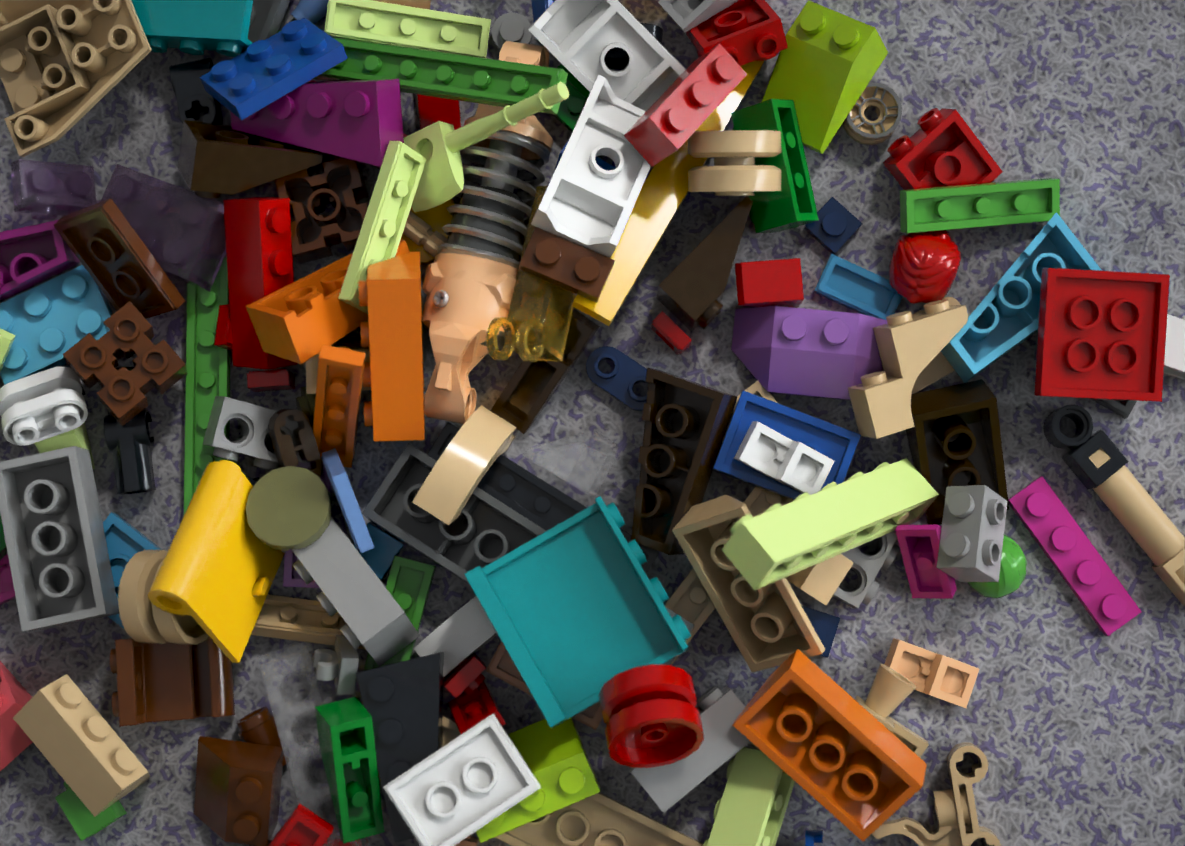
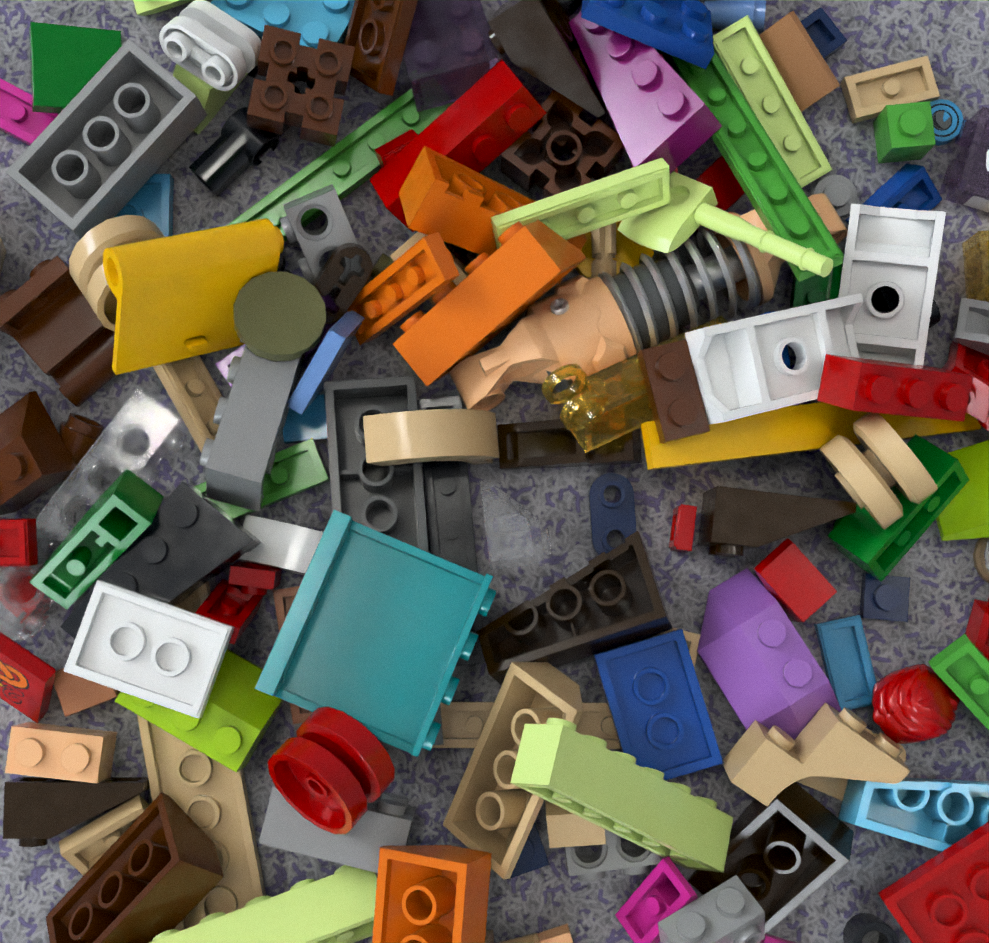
camera: 45 degrees right, 0 degrees up
(270, 380) = (381, 220): red tile -> none
(338, 665) = (179, 461): light grey tile -> none
(784, 459) = (649, 712): white slope -> none

